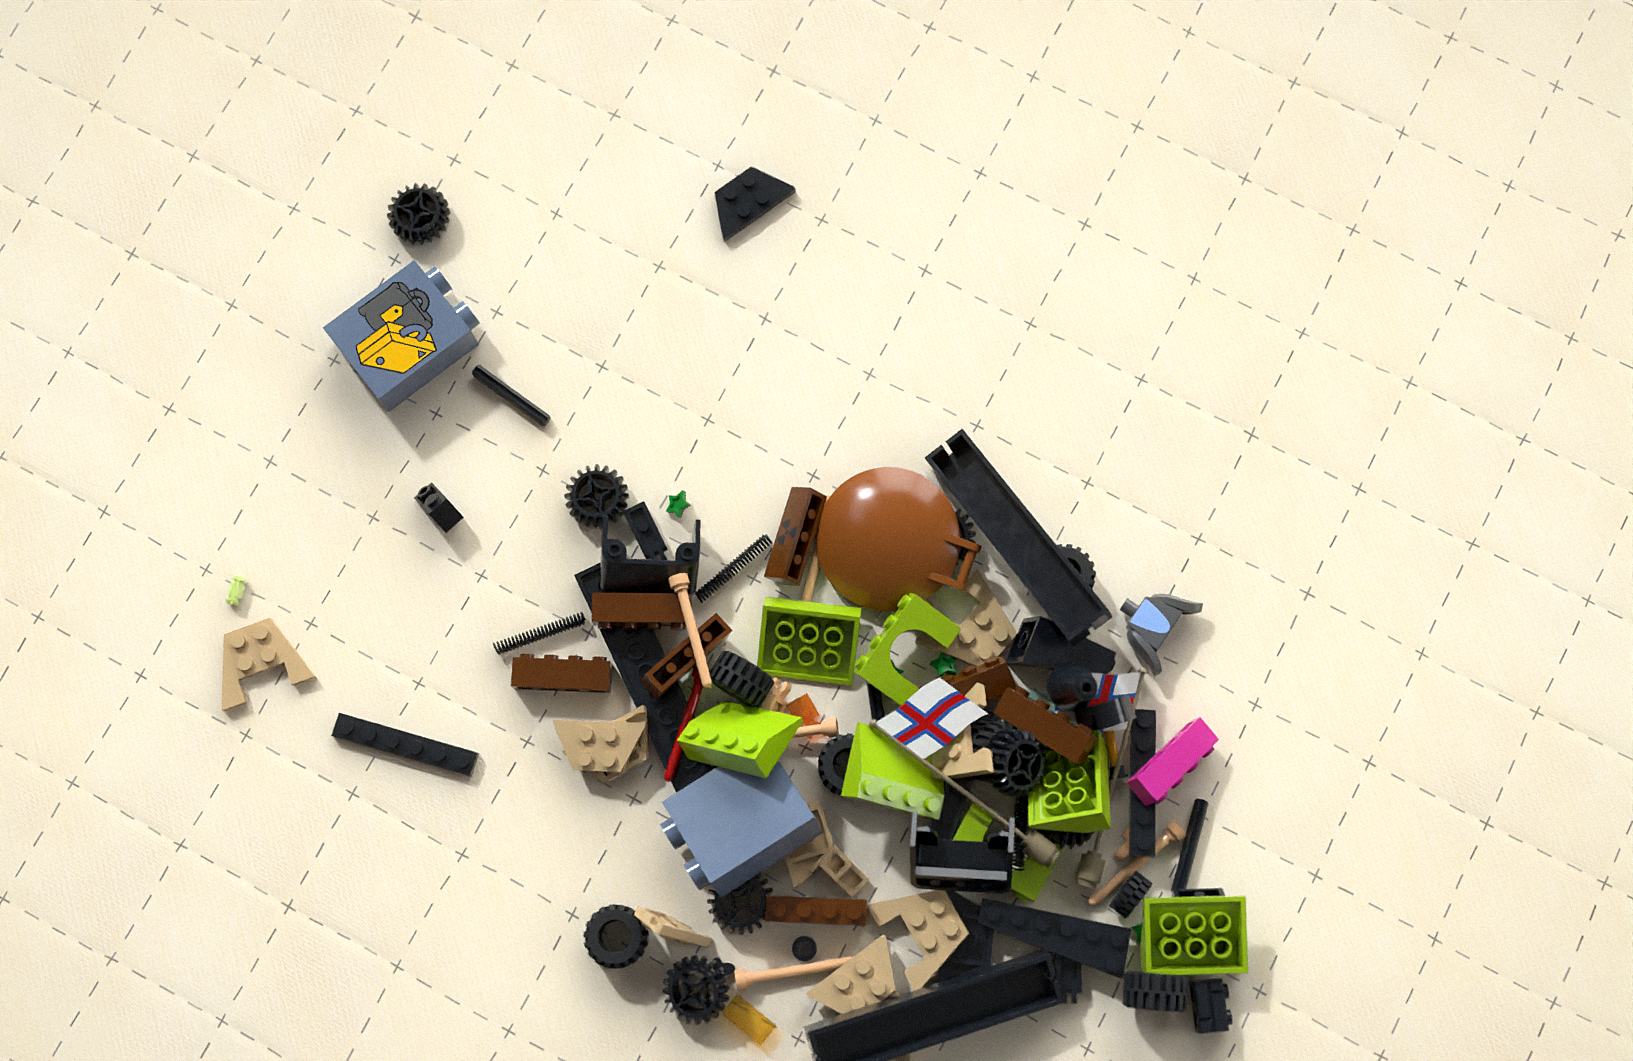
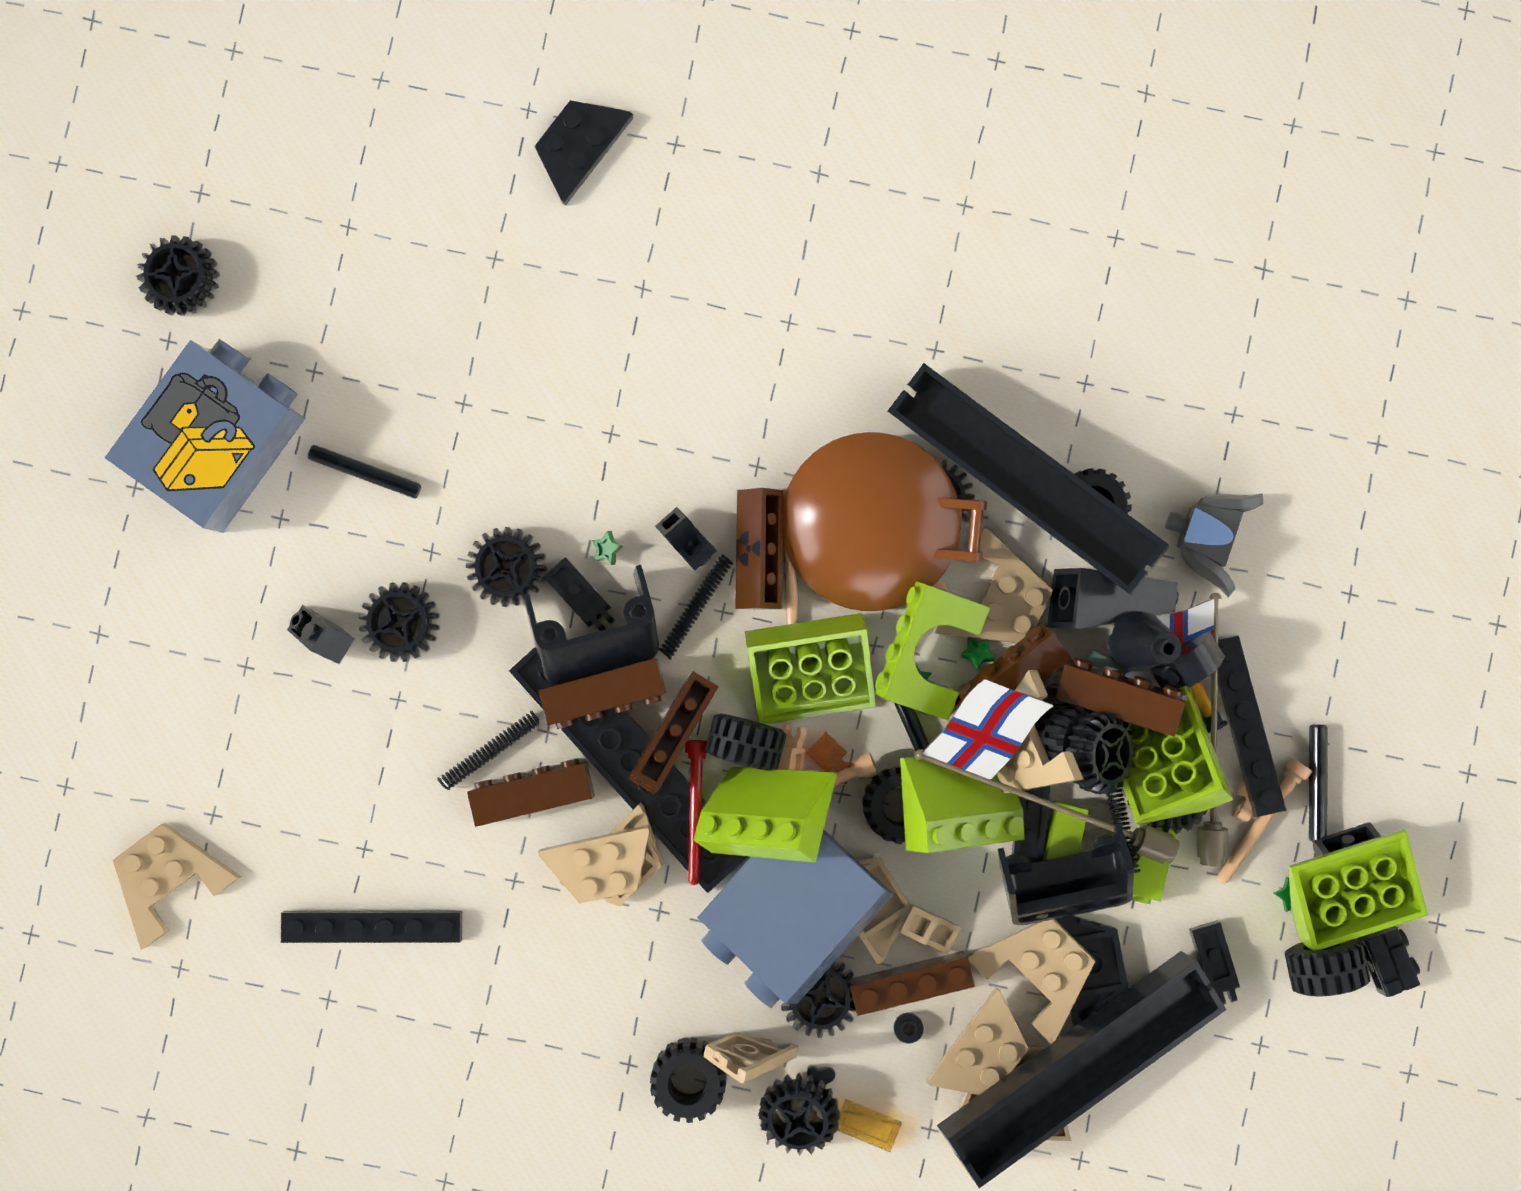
camera: 20 degrees left, 10 degrees up
(235, 590) = (109, 803): yellowish green piece -> none
(492, 516) = (376, 634): none -> black gear
(680, 585) = (641, 653): light nougat piece -> none
(741, 512) = (686, 538): none -> black brick
(745, 978) = (850, 1082): light nougat piece -> none
(1078, 939) = (1222, 929): black wing -> none
(1130, 894) = (1268, 861): black tyre -> none
(1173, 761) = (1278, 694): dark pink brick -> none

